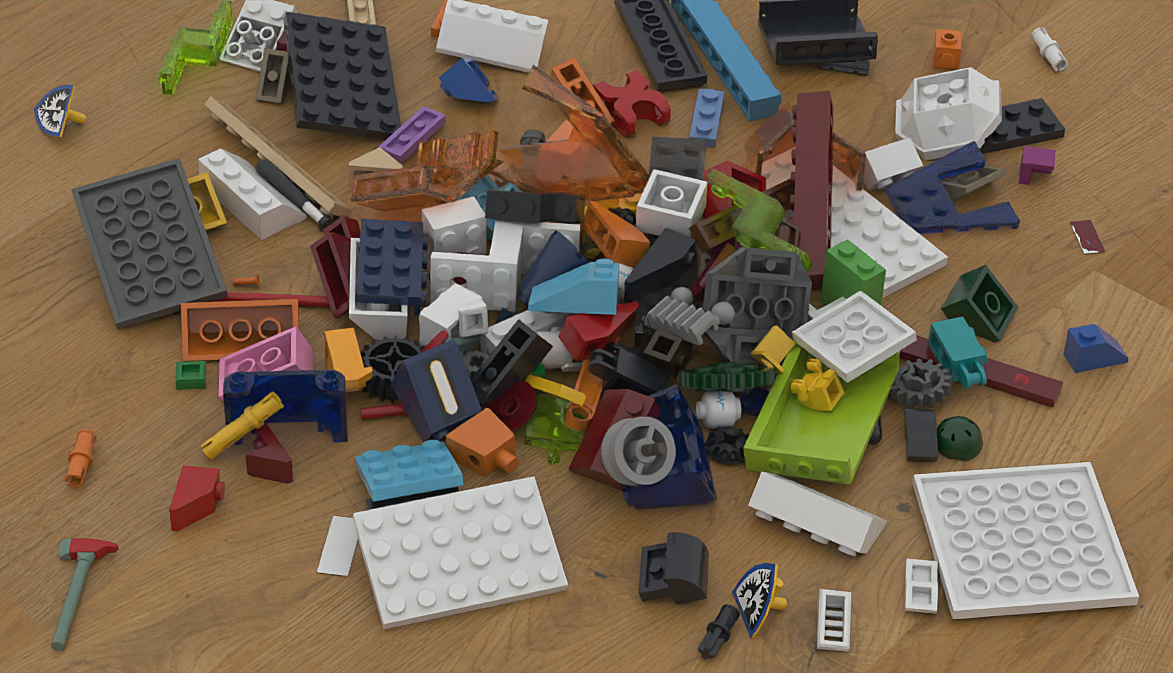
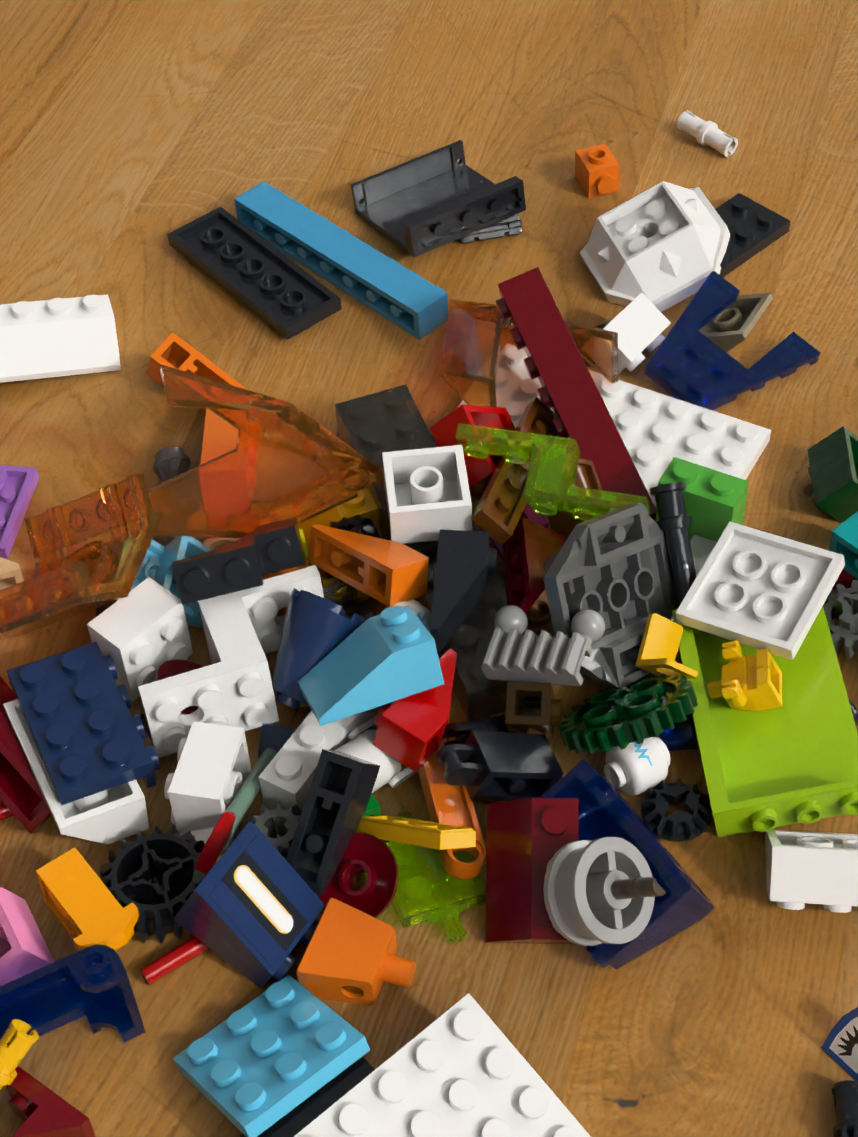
camera: 20 degrees left, 5 degrees up
(467, 82) = (43, 413): blue slope -> none
(473, 319) = (246, 767): white slope -> none
(633, 103) = (270, 365): red piece -> none
(675, 569) = (735, 1055): black brick -> none
(707, 116) = (367, 353): medium blue plate -> none
(822, 278) = (675, 524): none -> black pin
(1035, 160) = (787, 270): magenta panel -> none

